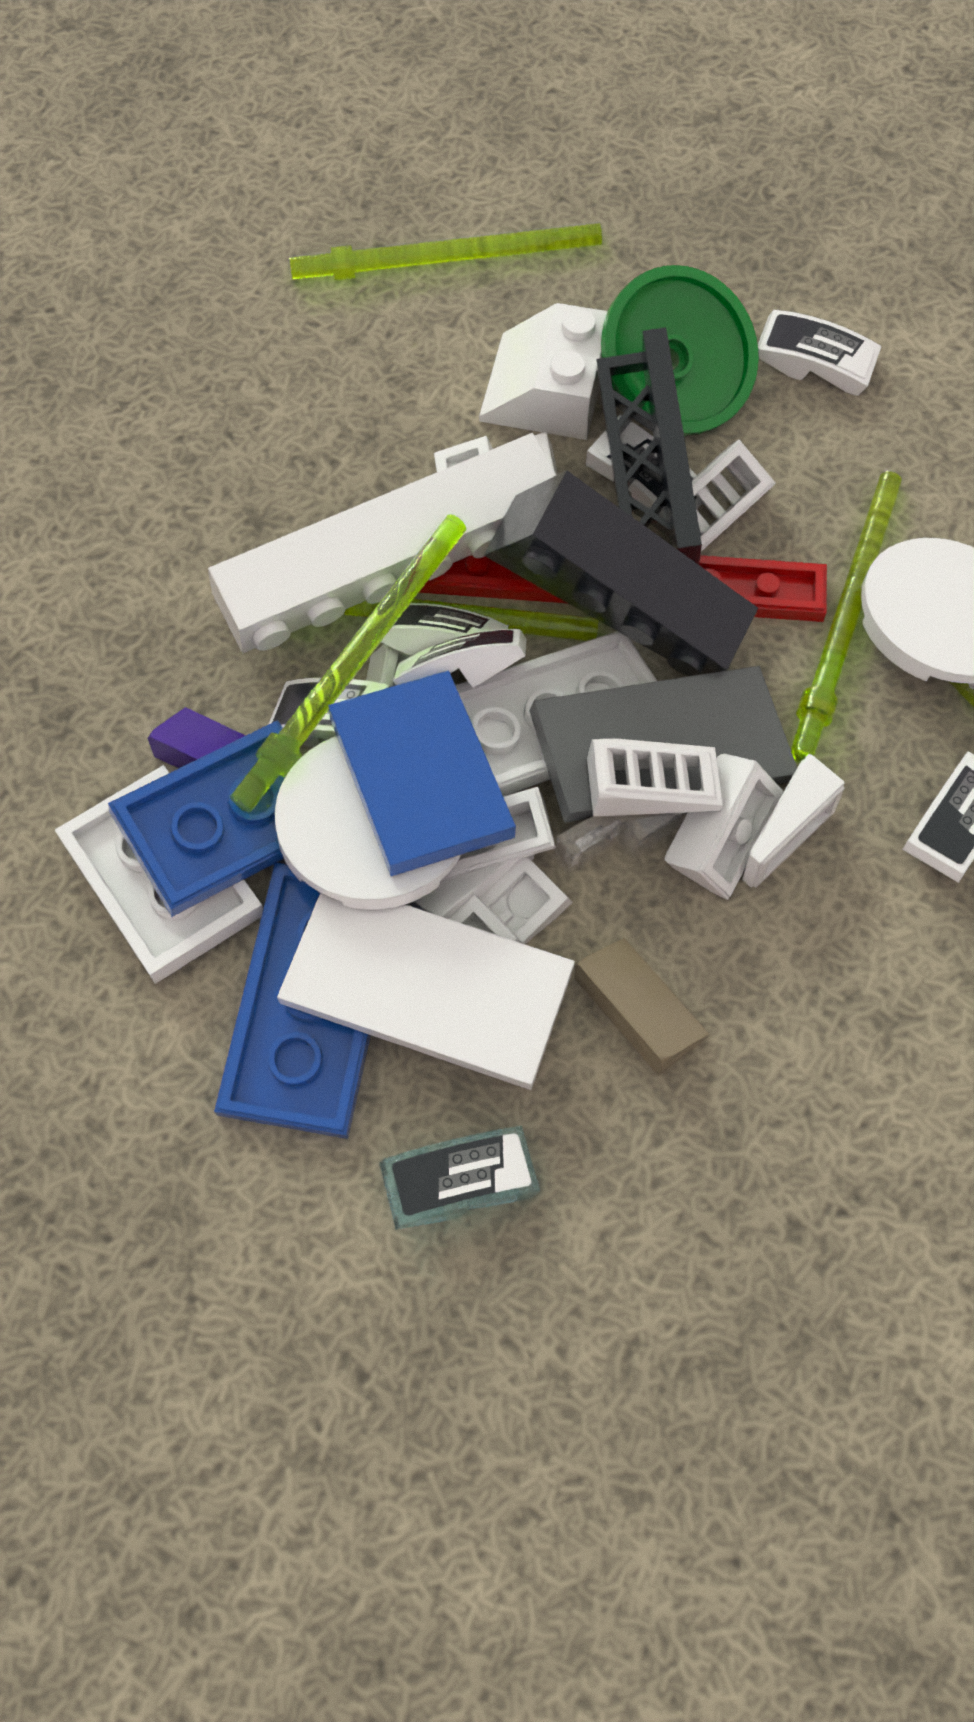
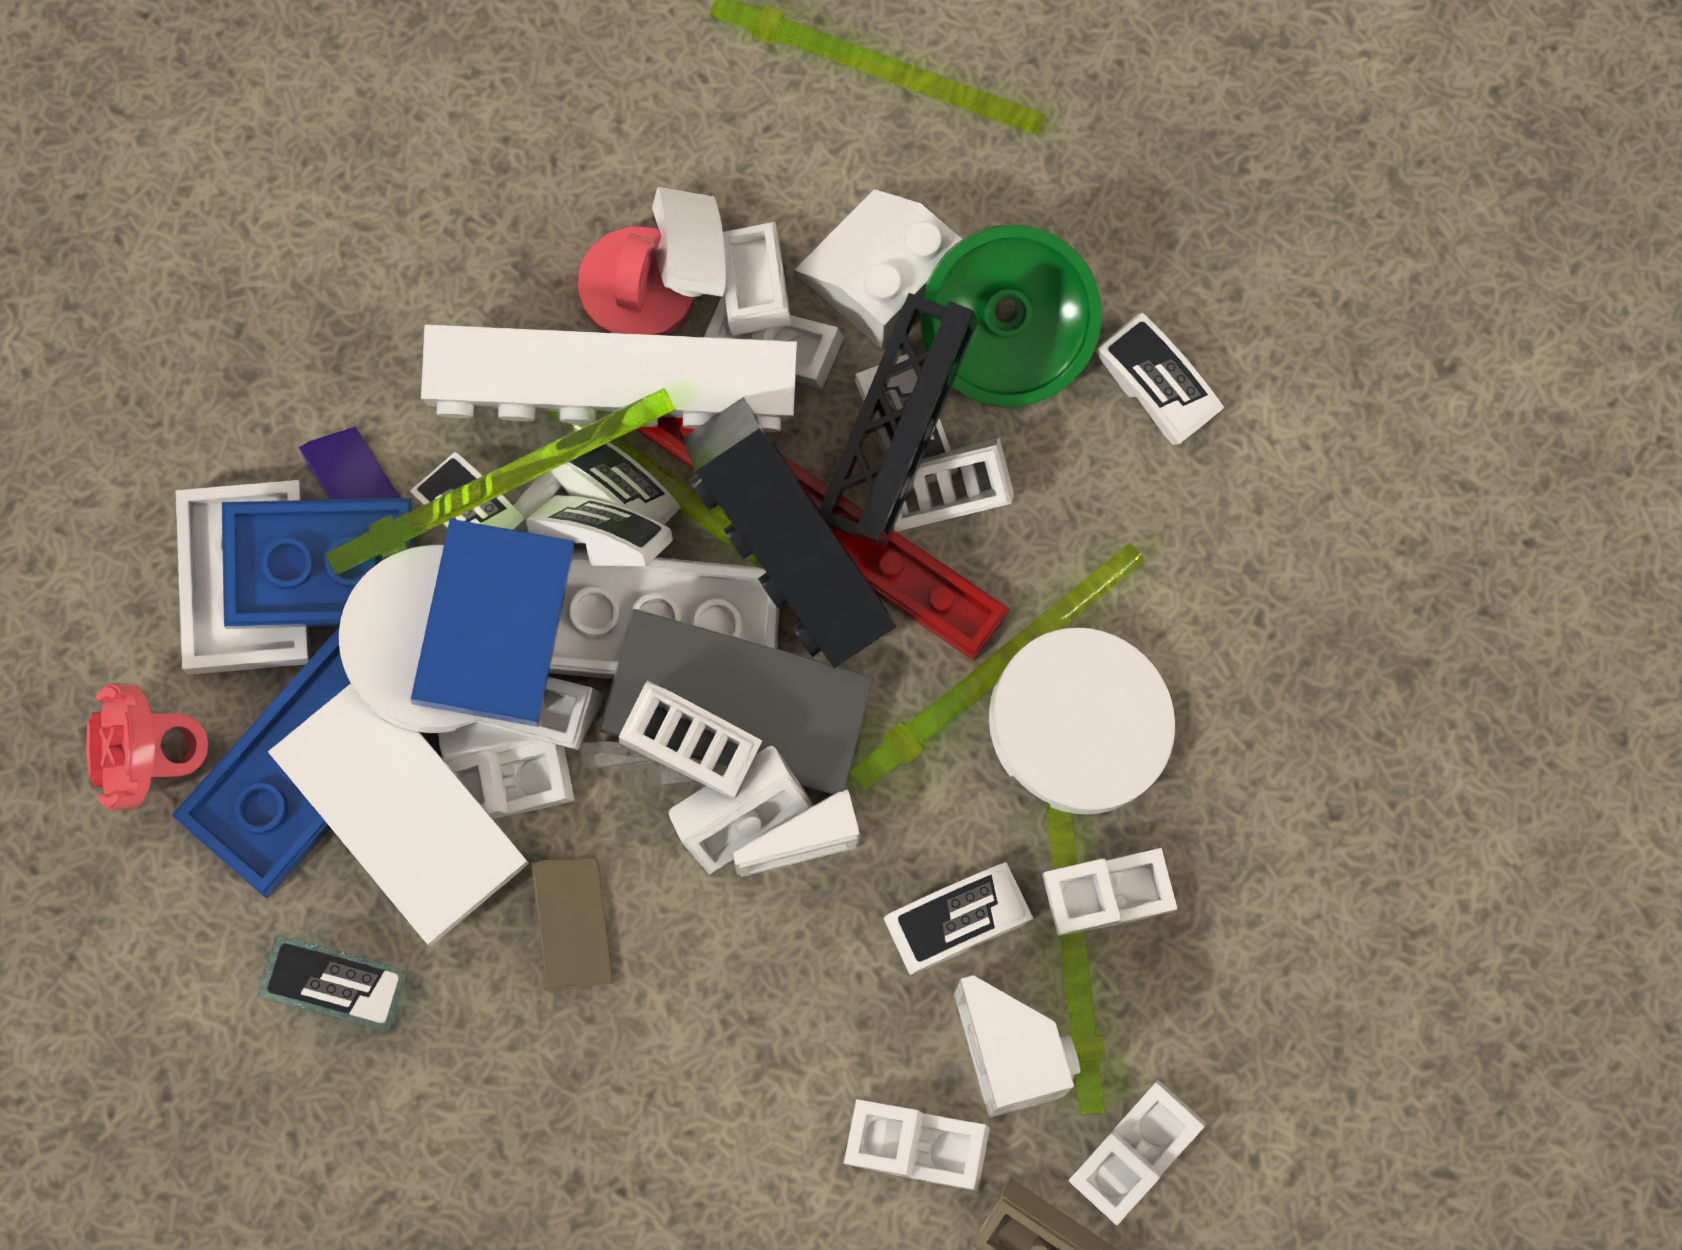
camera: 25 degrees right, 10 degrees up
(137, 1065) = (127, 750): none -> coral tile
(353, 472) = (625, 288): none -> coral tile
(388, 426) = (690, 243): none -> white slope
(453, 426) = (755, 279): none -> white tile

